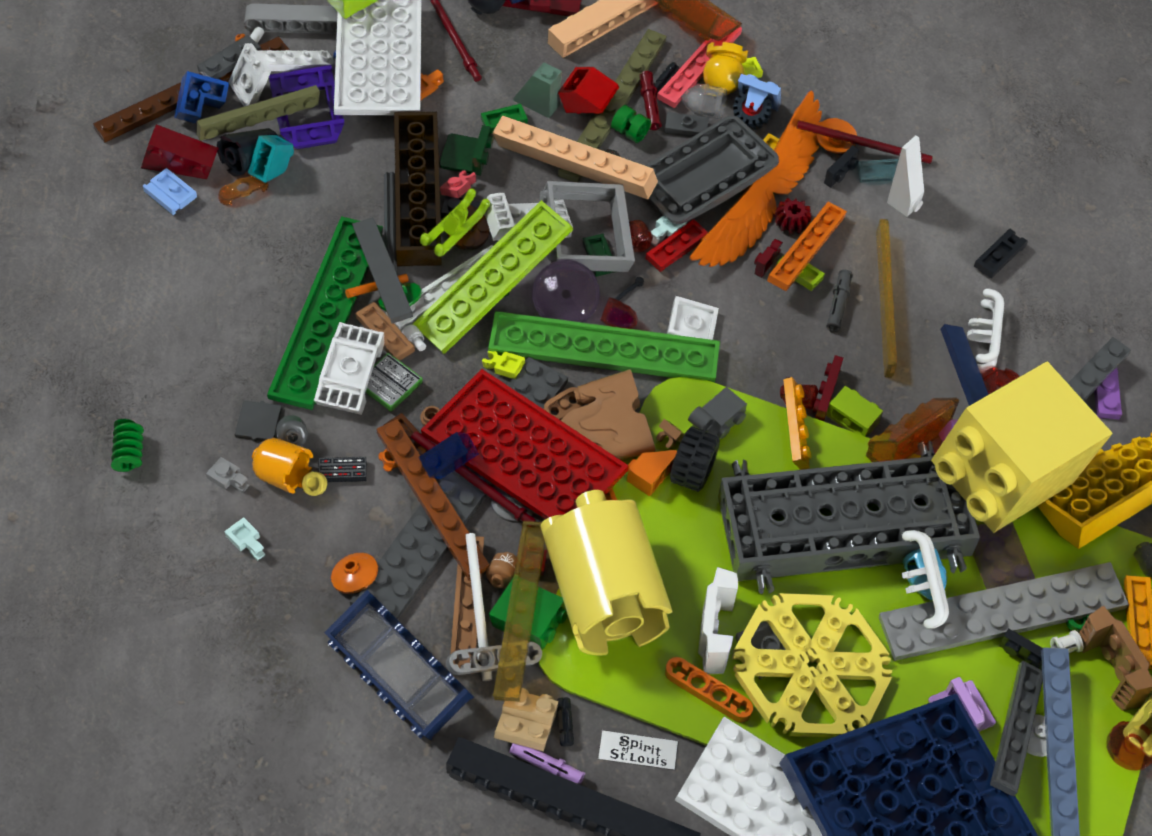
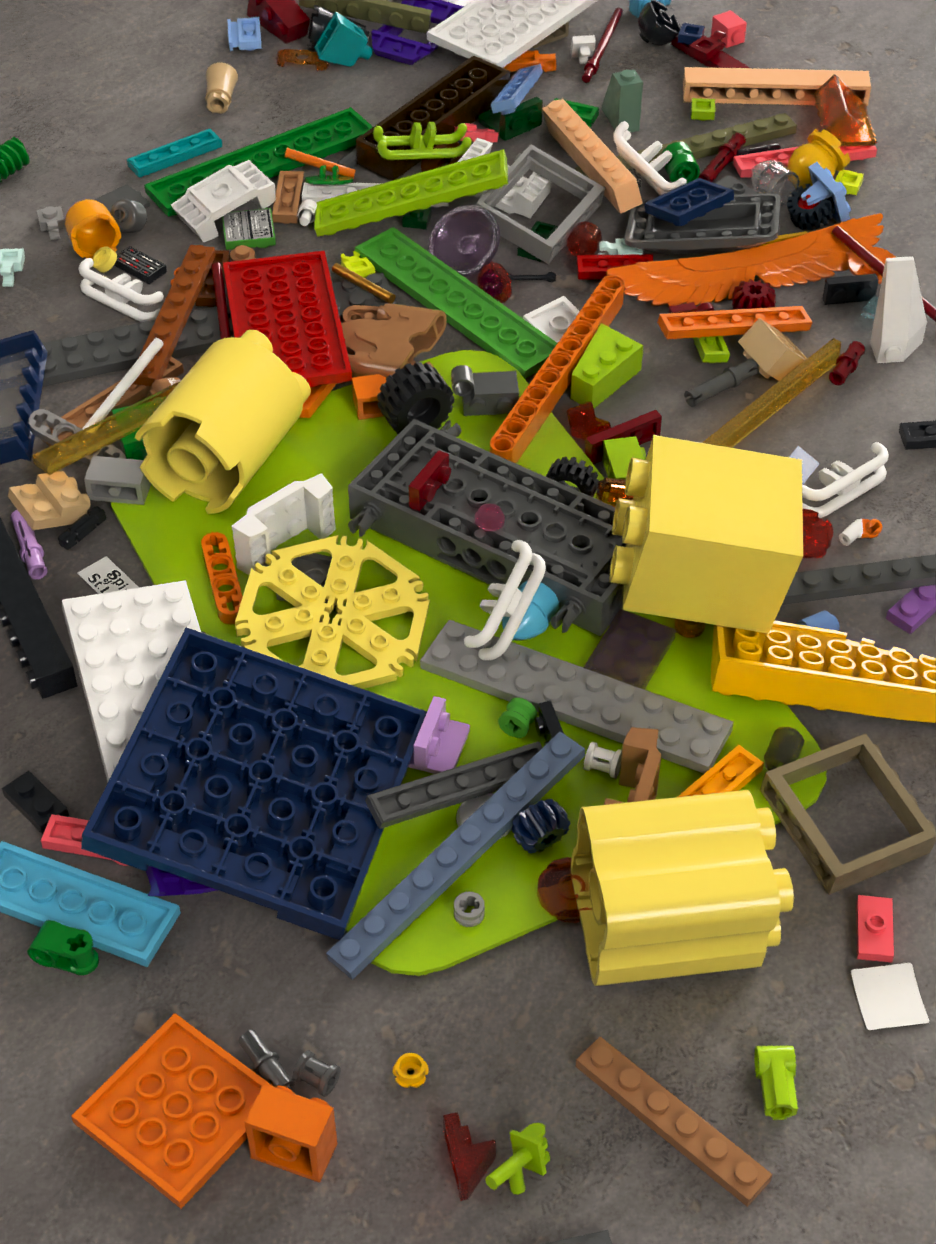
camera: 45 degrees right, 10 degrees down
(217, 260) = (220, 86): none -> tan plant
(245, 345) = (174, 152): none -> teal tile
(354, 573) = (57, 329): orange dish -> none
(363, 510) = (118, 292): none -> white piece
(382, 270) = (329, 149): dark grey tile -> none
(411, 409) = (241, 253): none -> medium nougat plate
(448, 455) = (213, 283): clear blue brick -> none
(449, 51) = (582, 47): none -> white tile
(458, 125) = (516, 89): none -> medium blue plate
(534, 377) = (363, 283): none -> pearl gold bar
(558, 666) = (116, 480): none -> light grey brick
(587, 91) = (665, 121): red slope -> none
(590, 58) = (703, 109): none -> lime plate
(610, 142) = (647, 170): none -> white piece
(685, 160) = (689, 201): none -> dark blue plate
(716, 297) = (556, 372): none -> orange beam
(760, 335) = (605, 366): none -> lime wedge
(794, 517) = (428, 481): none -> dark red plate
(797, 429) = (553, 434): light orange plate -> none
(849, 254) = (771, 350): none -> tan slope
(852, 451) = (575, 473): none -> black tyre
(857, 518) = (489, 517): none -> clear pink plate
(896, 231) = (847, 363): none -> dark red pin
(993, 653) = (517, 717): none -> bright green wheel
(1028, 359) = (860, 529): none -> arm
(1089, 719) = (540, 825): none -> dark blue gear
(1103, 798) = (462, 902): none -> light grey bush

